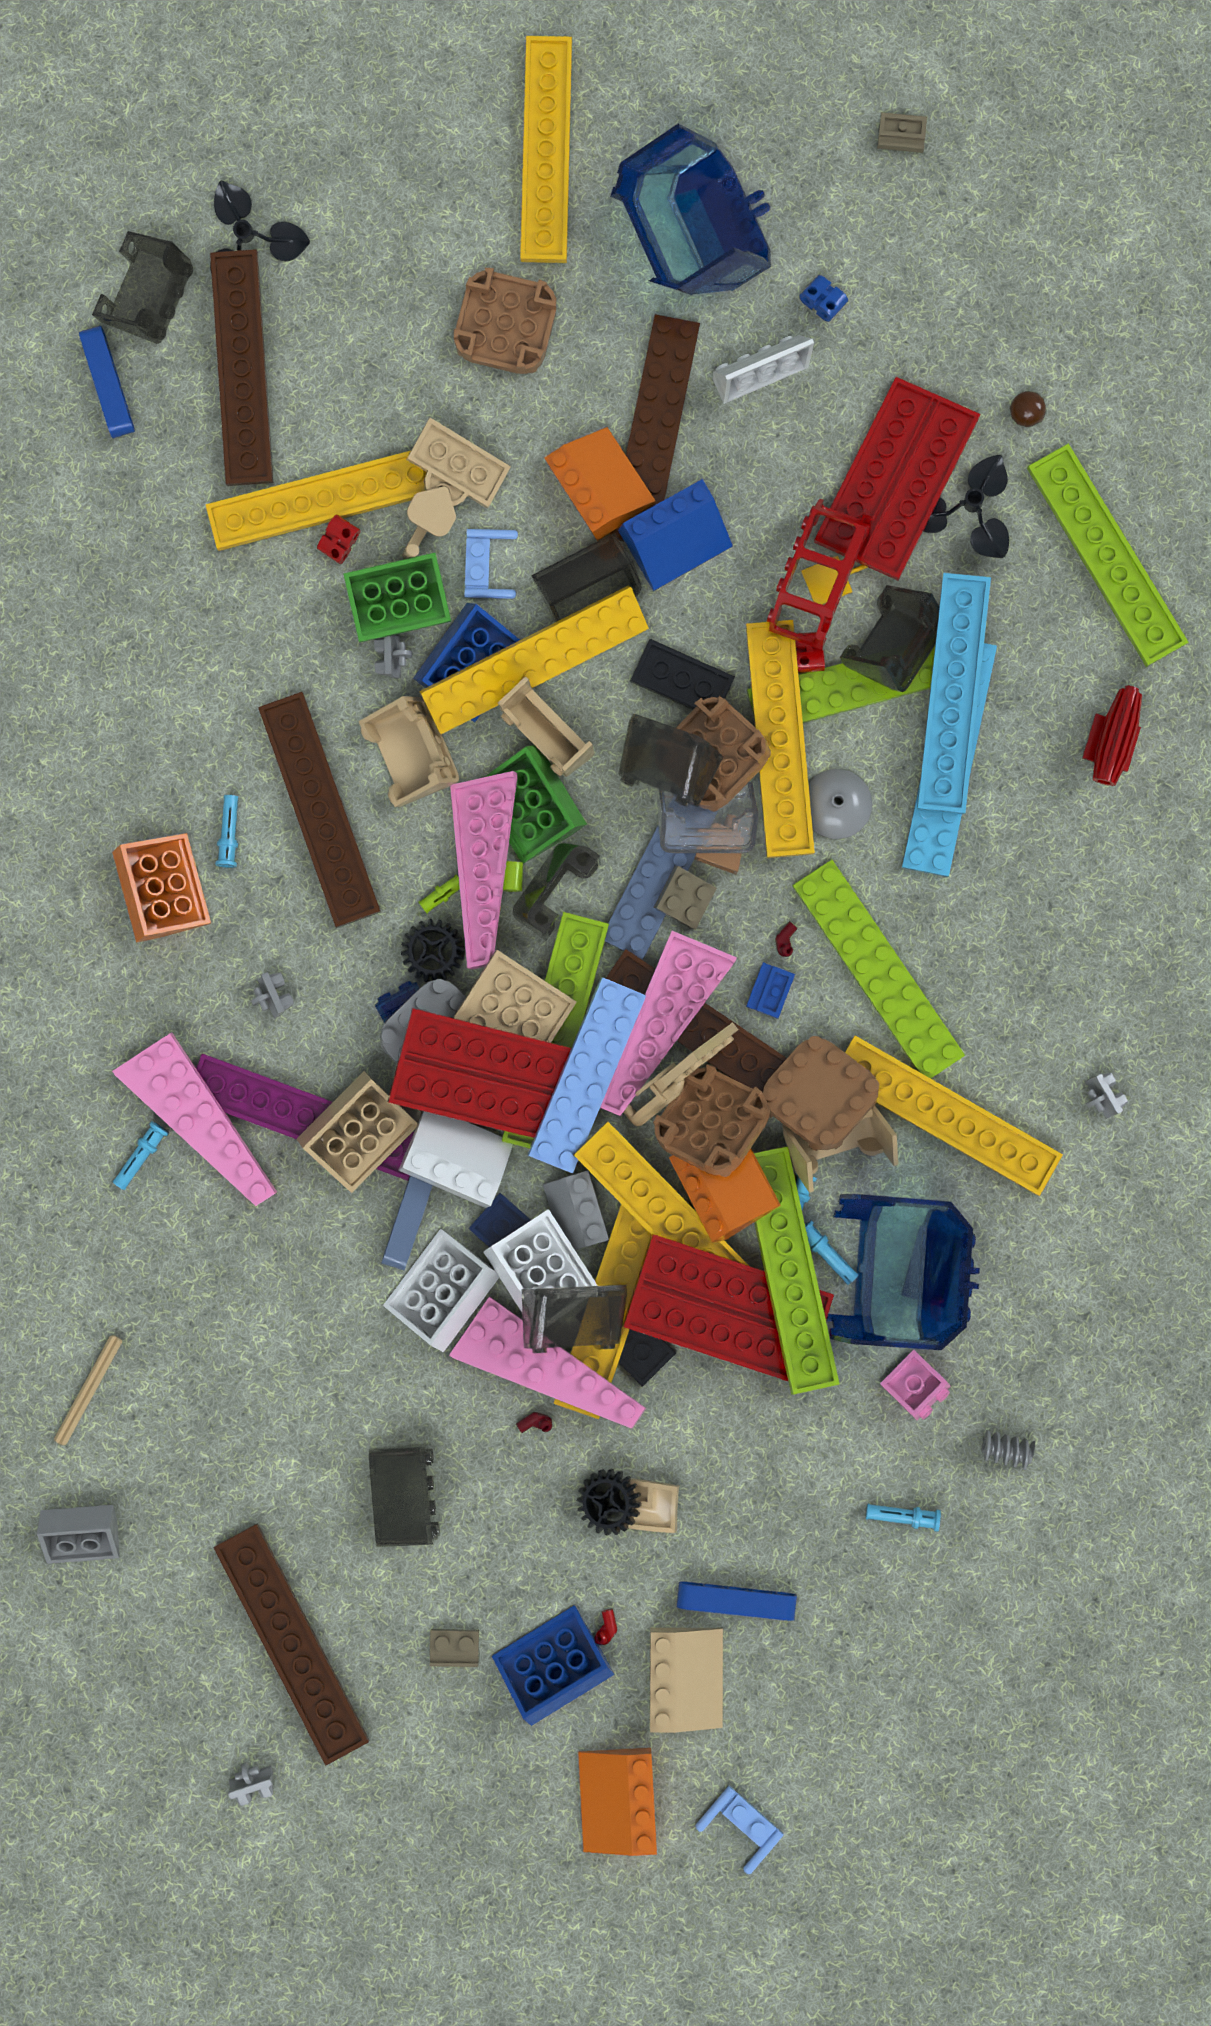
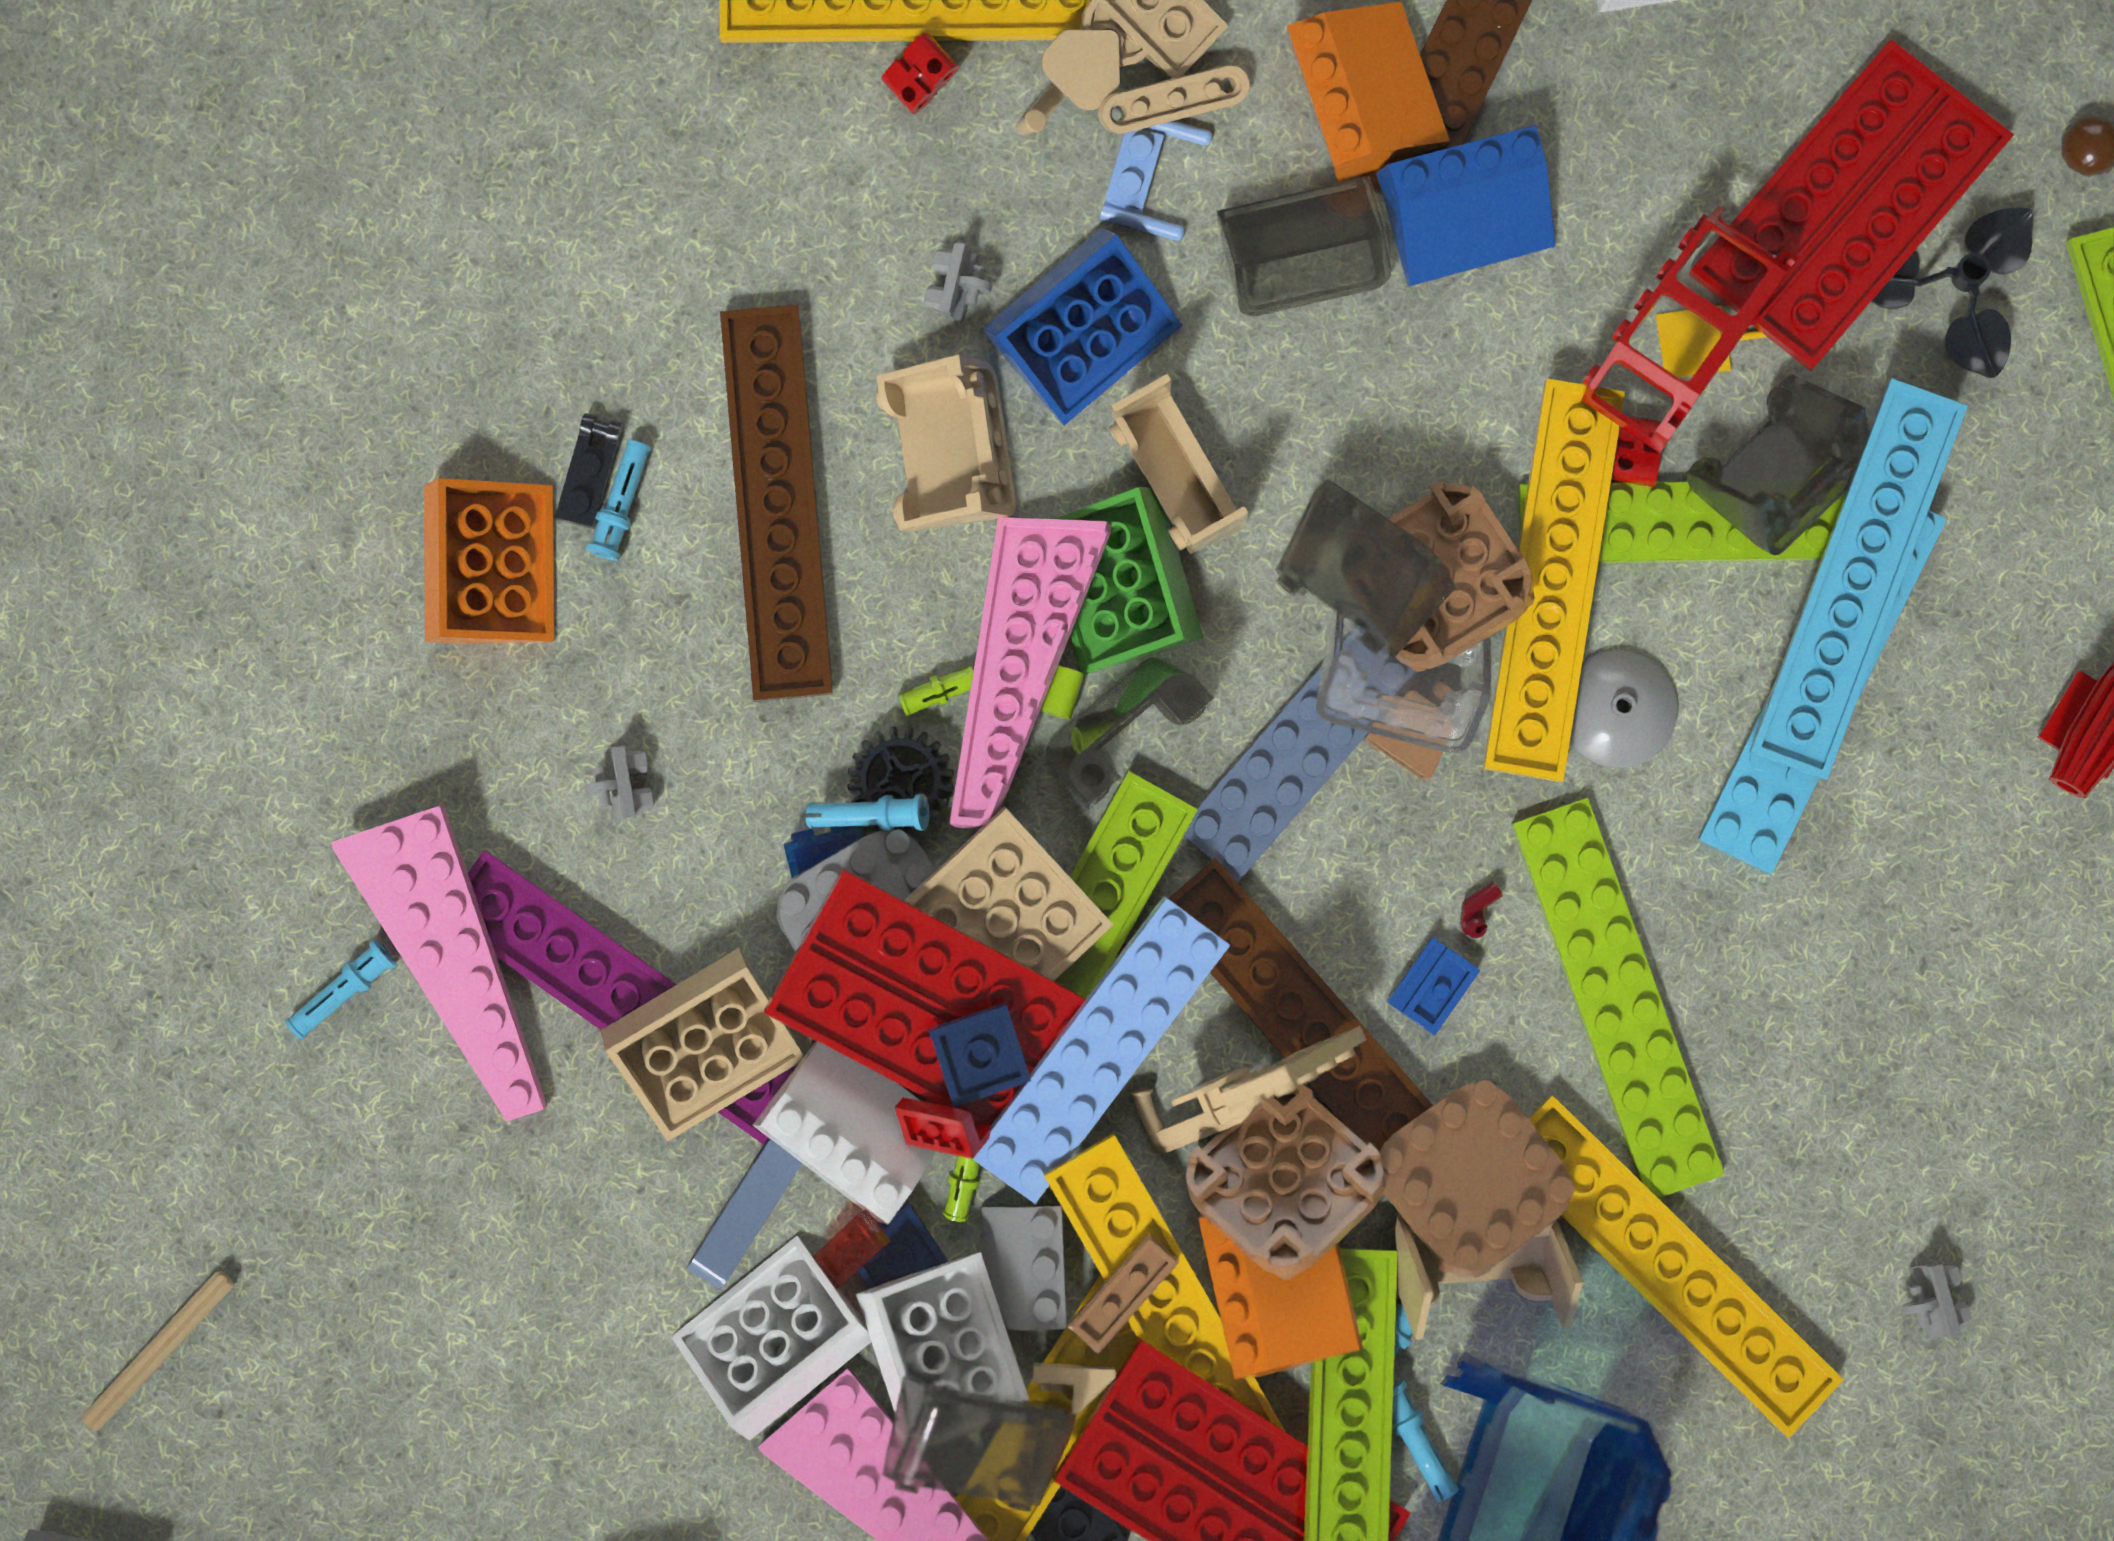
camera: 10 degrees right, 0 degrees up
(206, 820) = (589, 472): none -> black plate
(397, 597) = (990, 191): bright green slope -> none
(428, 971) = (885, 813): none -> medium azure pin
(473, 1226) = (851, 1248): none -> clear red plate
(490, 517) = (1174, 99): none -> tan plate
(506, 1143) = (940, 1128): none -> red bracket
(518, 1094) = (979, 1054): none -> dark blue plate
(528, 1172) = (962, 1182): none -> lime pin
(536, 657) = (1190, 345): yellow plate -> none
(627, 1266) = (1086, 1380): none -> tan slope
(636, 1210) = (1123, 1293): none -> medium nougat tile
(676, 993) = (1277, 954): bright pink wing -> none
(679, 676) = (1415, 435): black tile -> none
(685, 897) = (1333, 798): dark tan plate -> none

